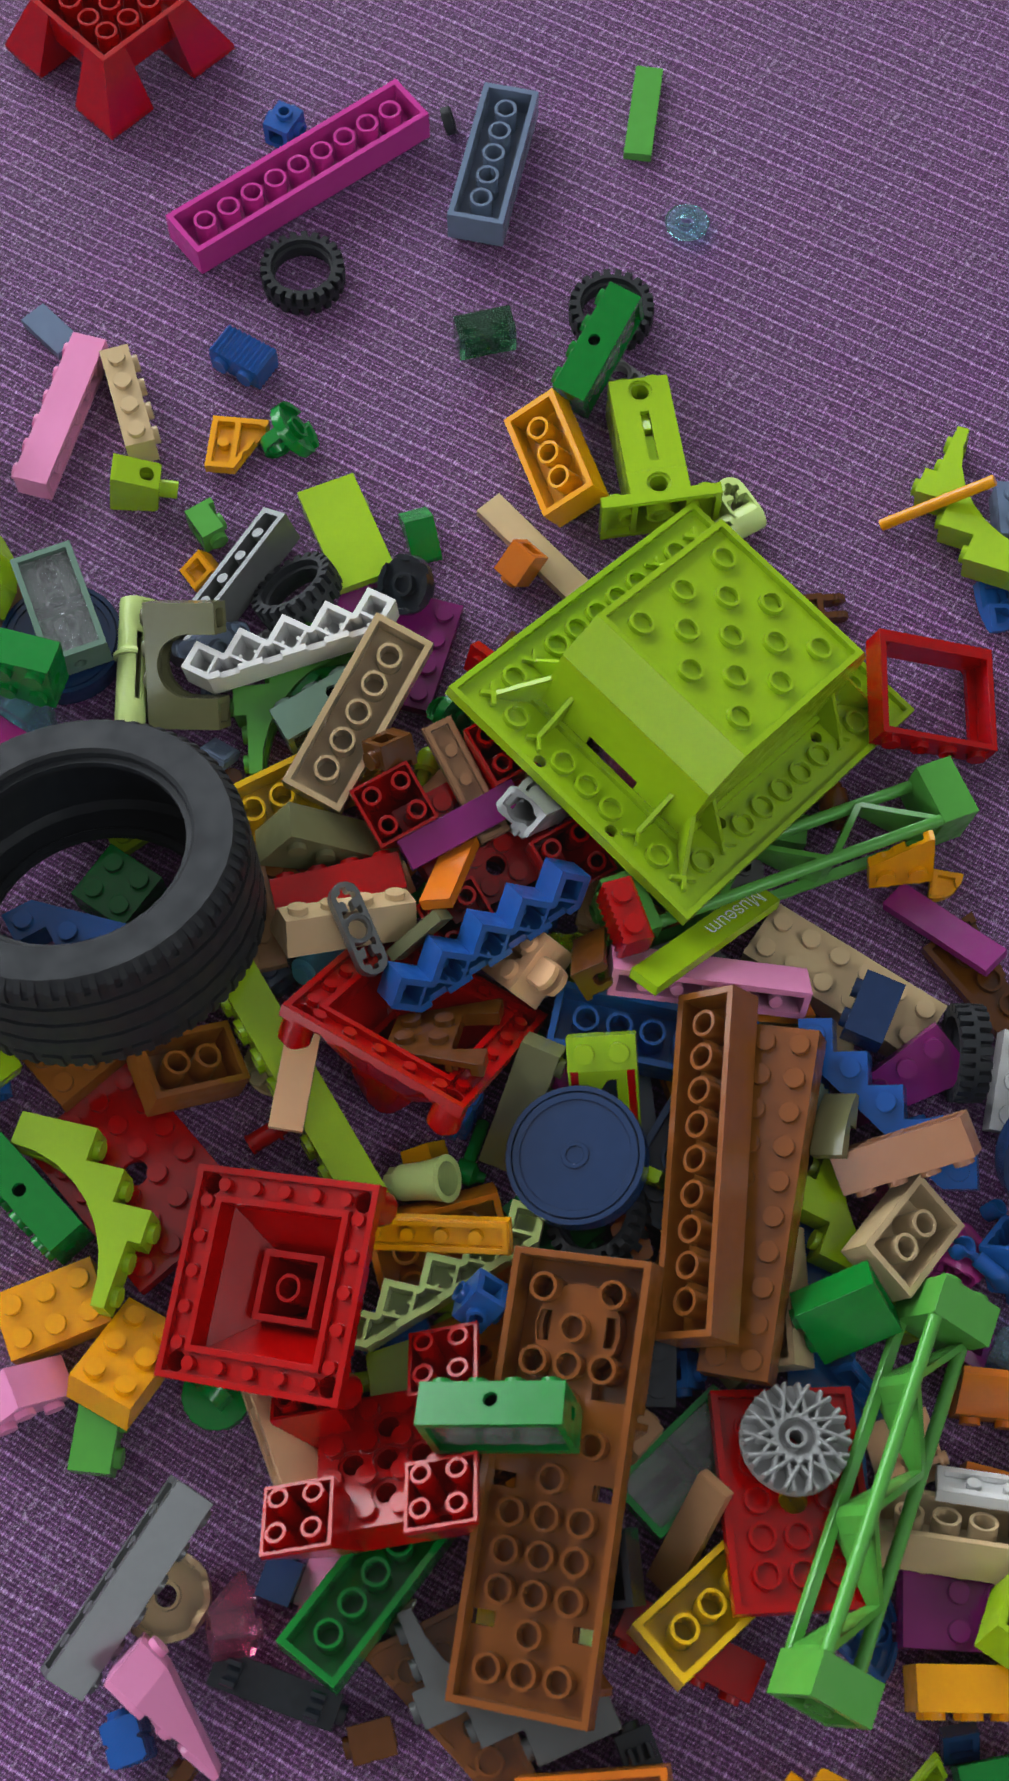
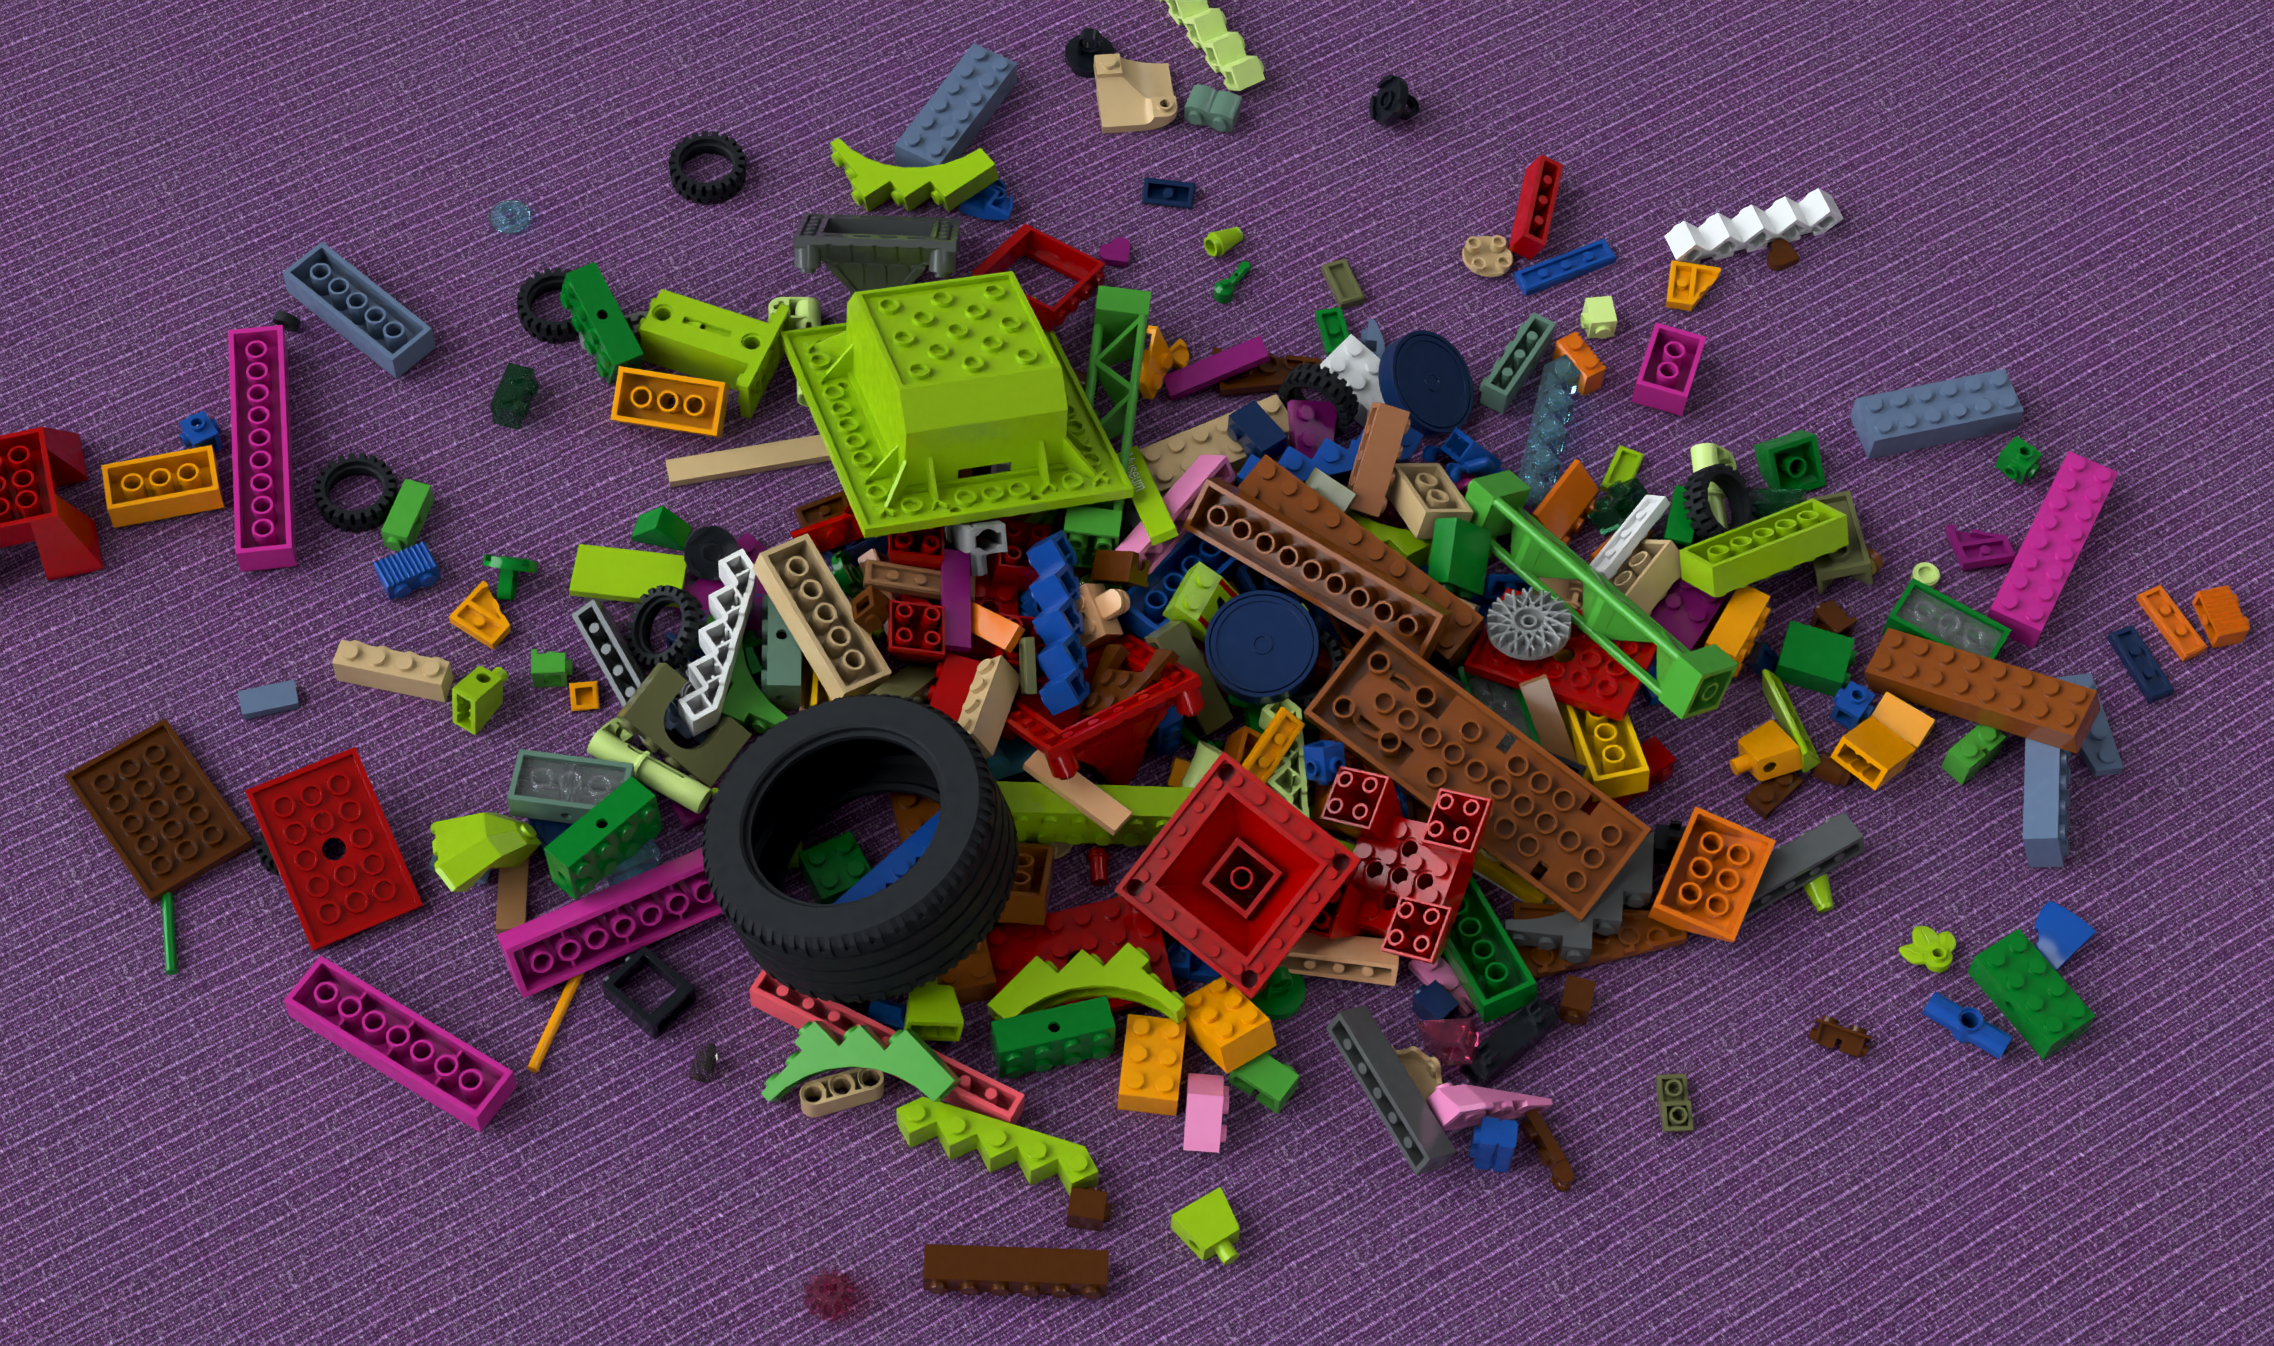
camera: 65 degrees left, 10 degrees down
(60, 417) = (364, 725): bright pink brick -> none
(210, 126) = (162, 486): none -> light orange brick
(301, 324) = (407, 515): none -> bright green brick
(340, 909) = (983, 696): dark grey beam -> none
(499, 1416) = (1423, 766): brick -> none
(520, 563) = (742, 474): orange brick -> none
(625, 917) = (1107, 524): red brick -> none
(643, 113) = (383, 191): bright green tile -> none
(841, 524) = (876, 249): none -> dark grey piece
(864, 318) = (702, 190): none -> black tyre
(938, 502) = (890, 177): light orange bar -> none

